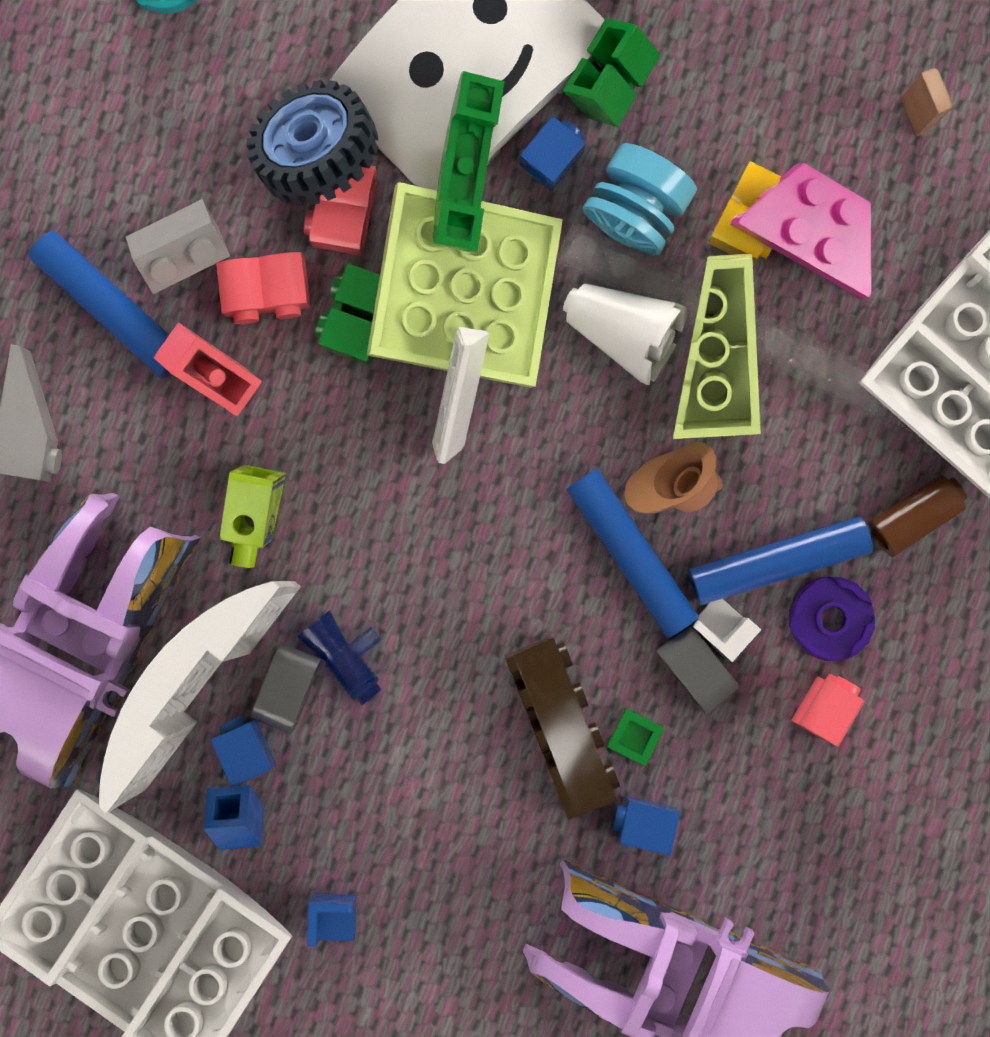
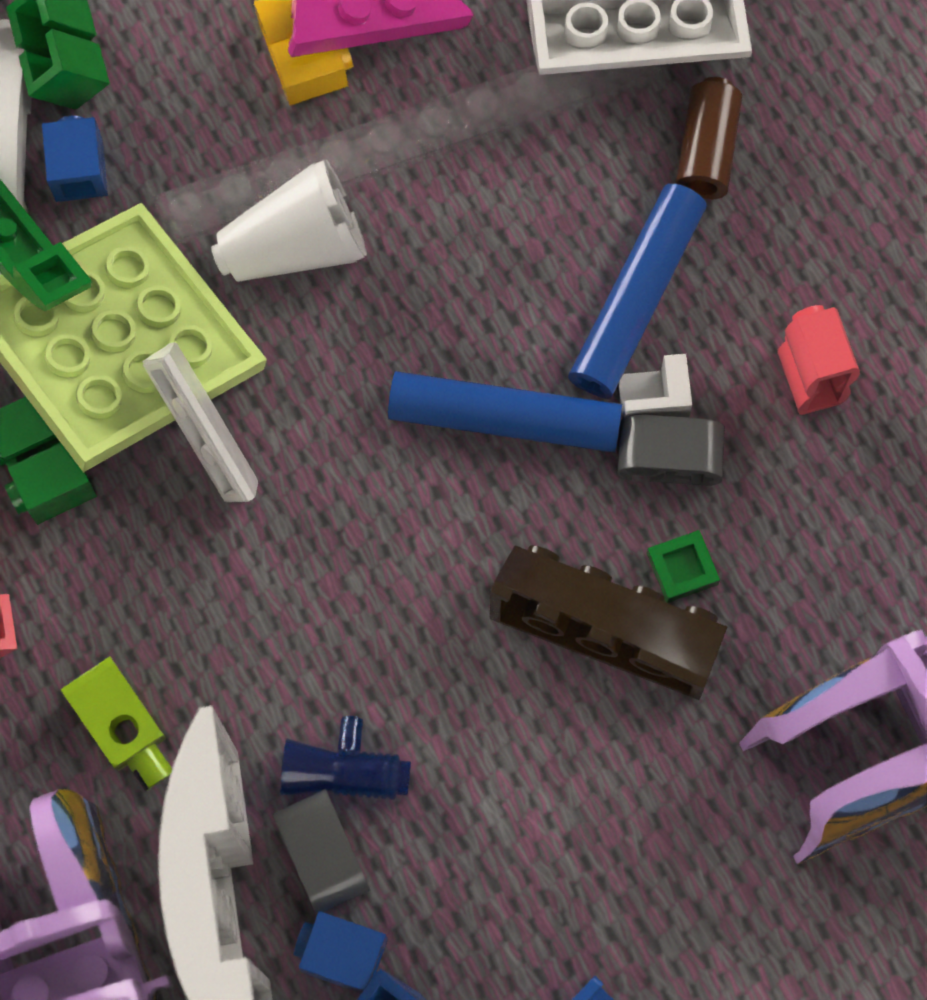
camera: 45 degrees left, 15 degrees down
(642, 194) = (191, 115): medium azure wheel -> none
(646, 825) = (778, 627): blue brick -> none
(675, 480) = (478, 310): nougat piece -> none
(722, 367) = (403, 167): yellowish green wedge -> none
(806, 618) = (727, 323): dark purple tile -> none

